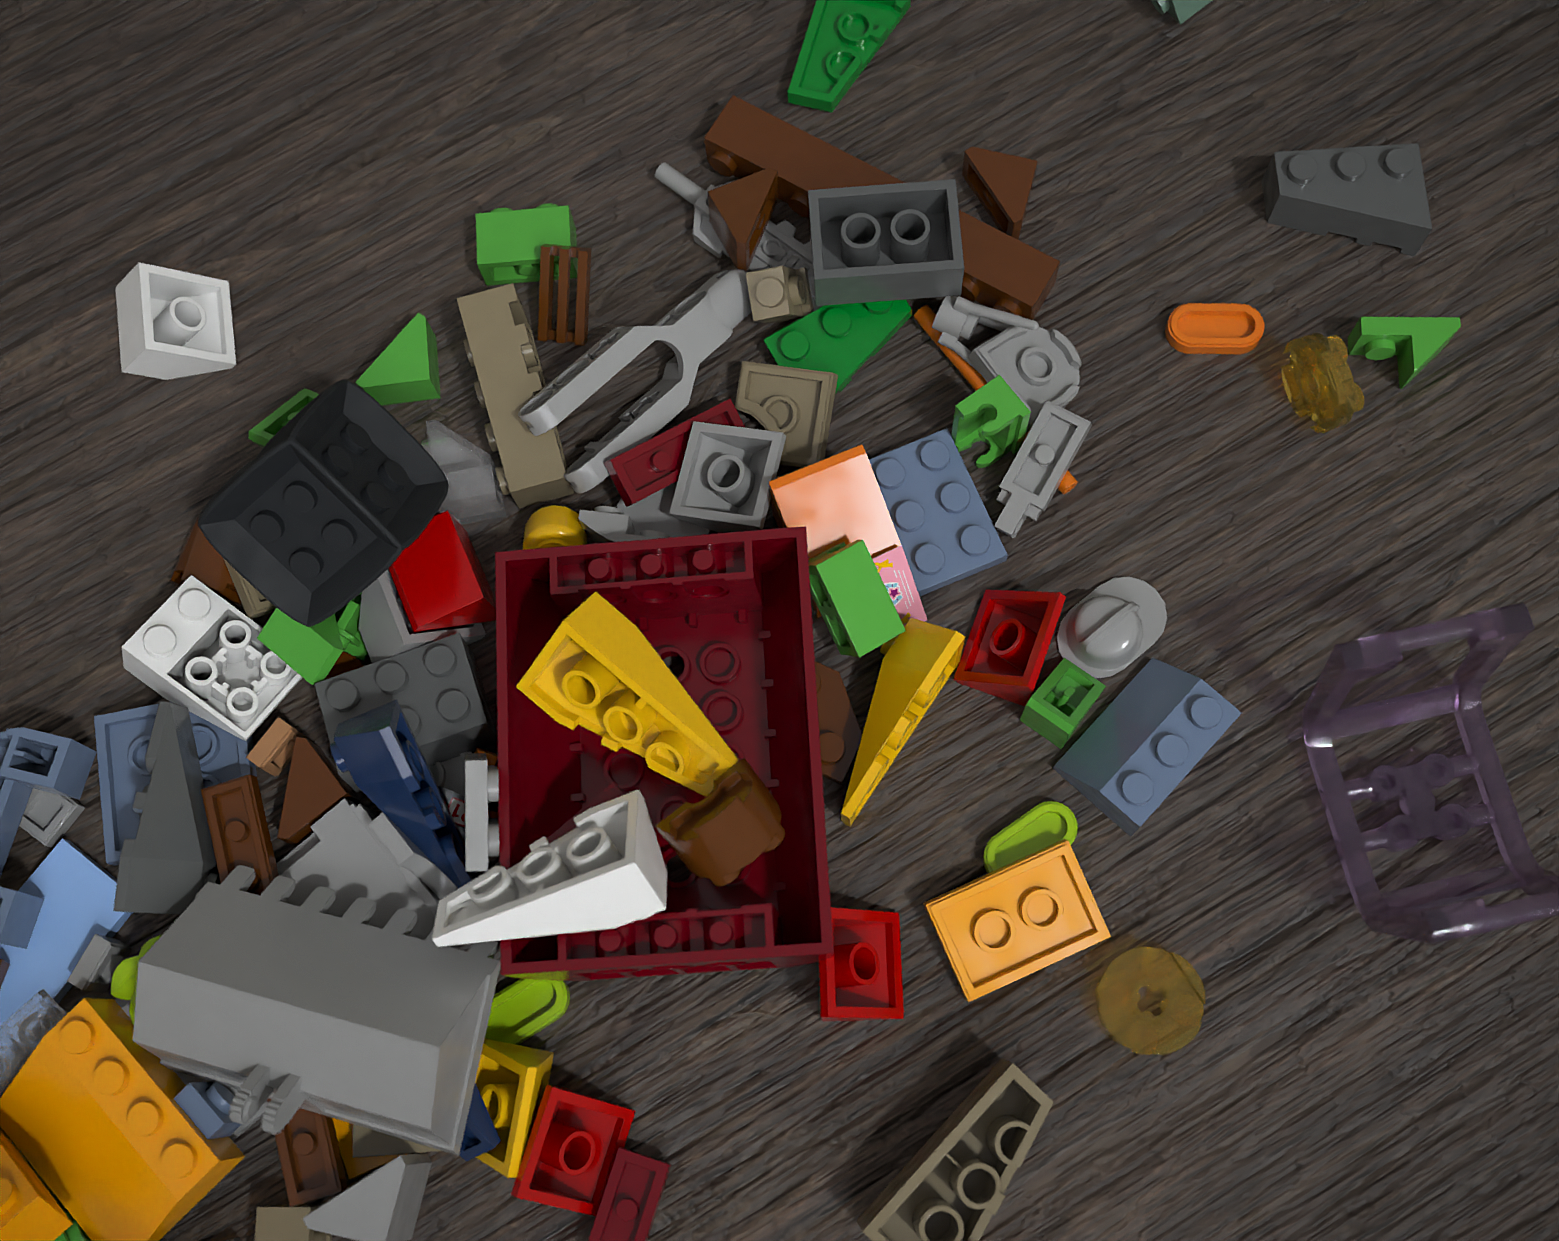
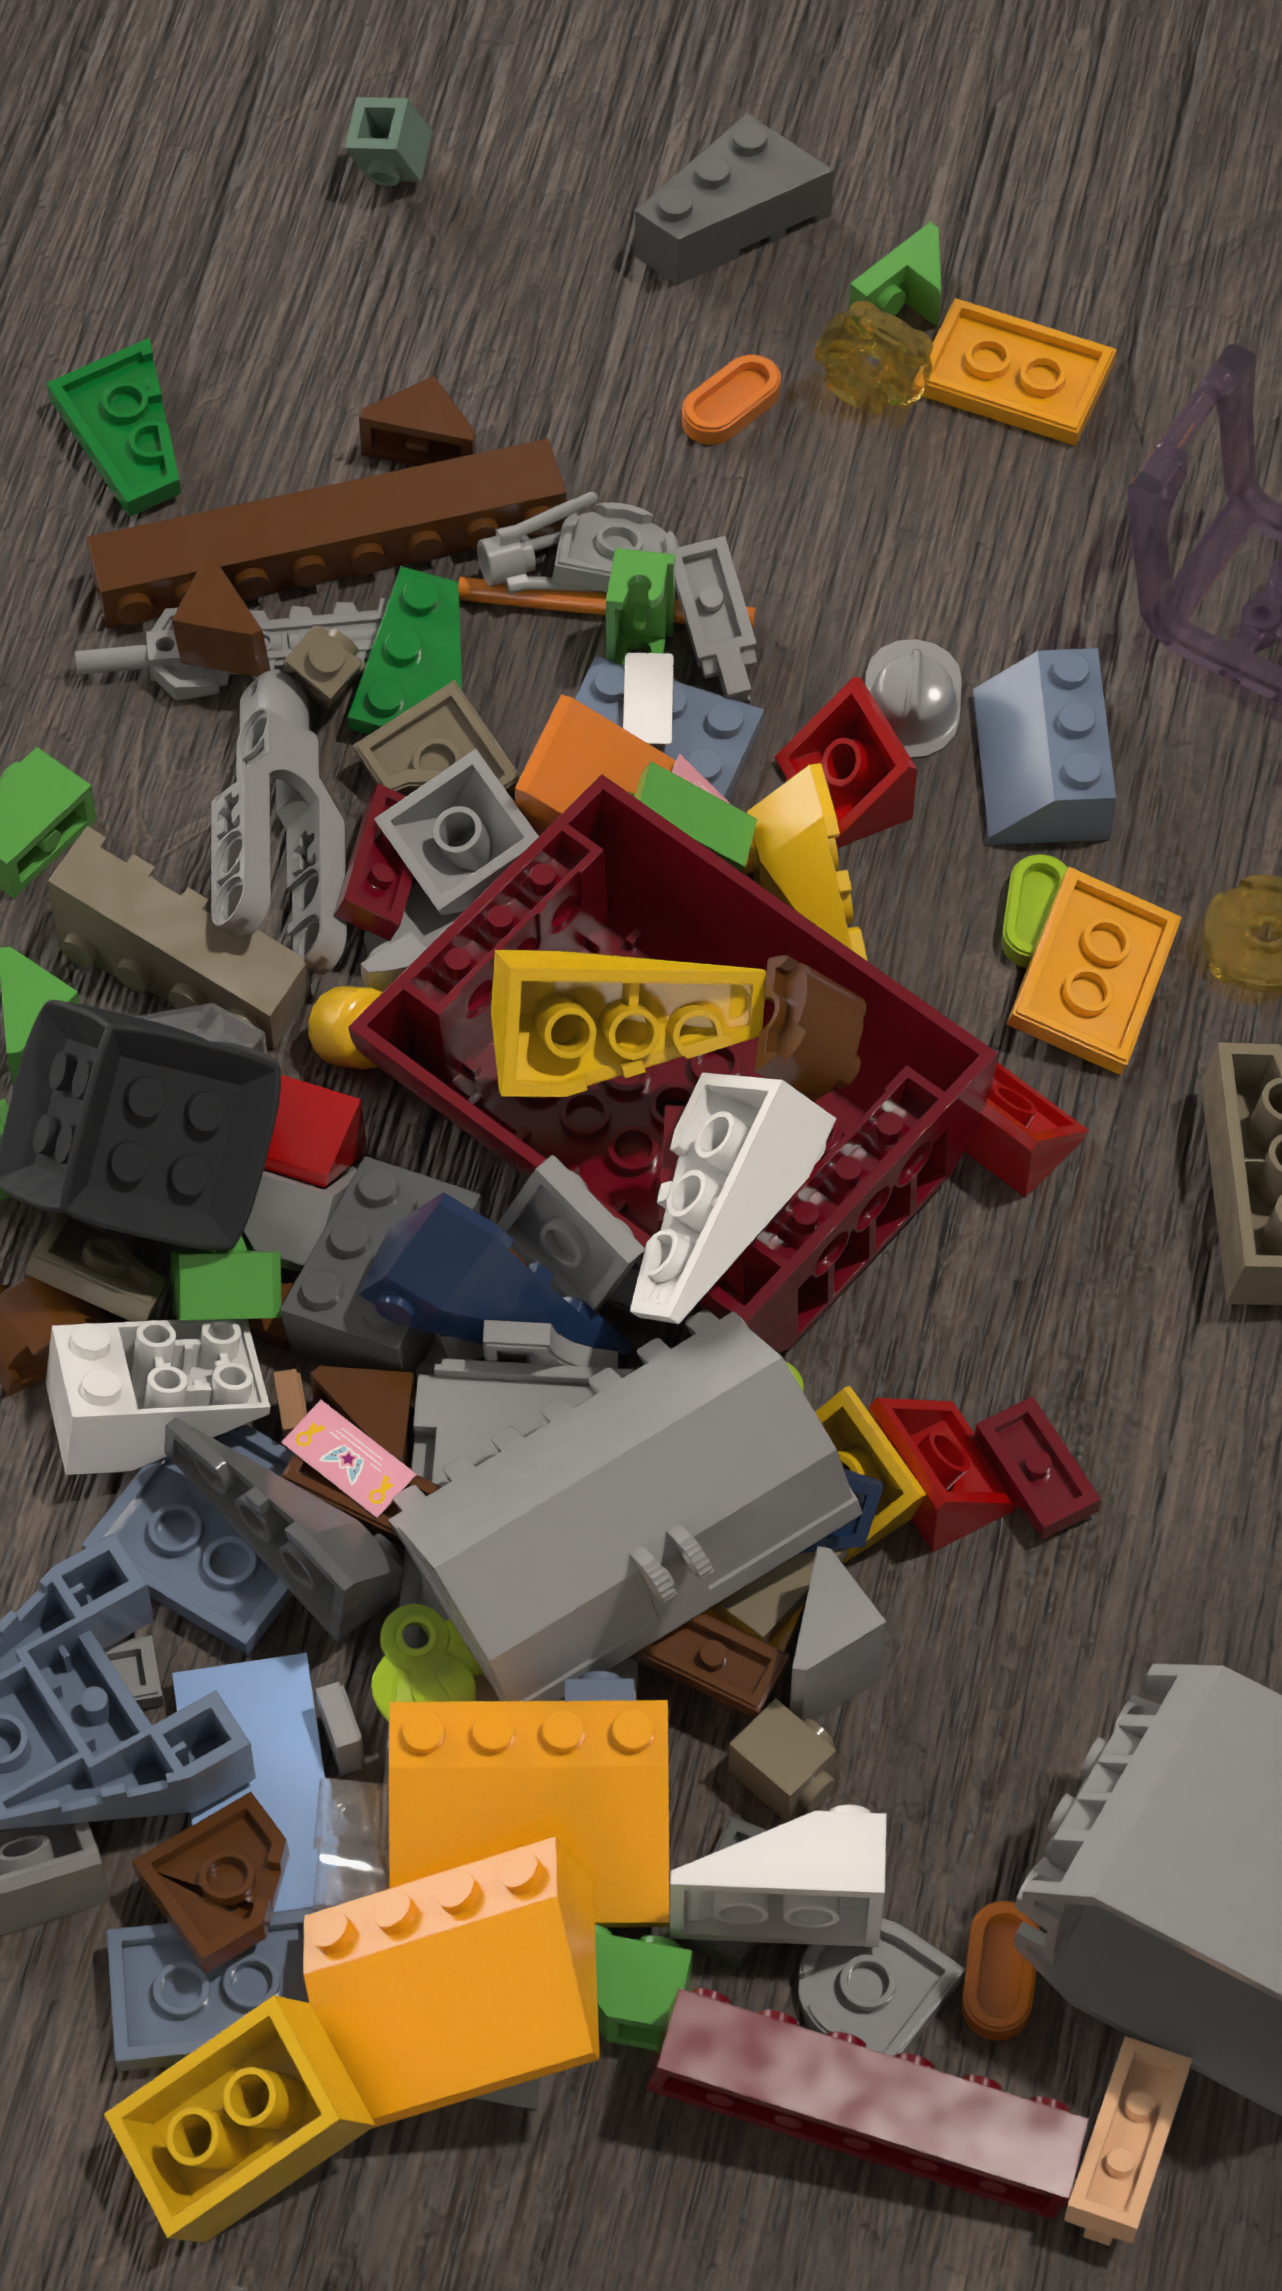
camera: 55 degrees left, 15 degrees down
(242, 816) = (348, 1458): none -> bright pink sticker
(545, 329) = (133, 806): reddish brown tile -> none
(886, 242) = (390, 530): dark grey brick -> none
(940, 487) = (649, 696): none -> white sticker
(1061, 702) = (947, 788): bright green slope -> none
(1416, 466) = (1017, 371): none -> light orange tile

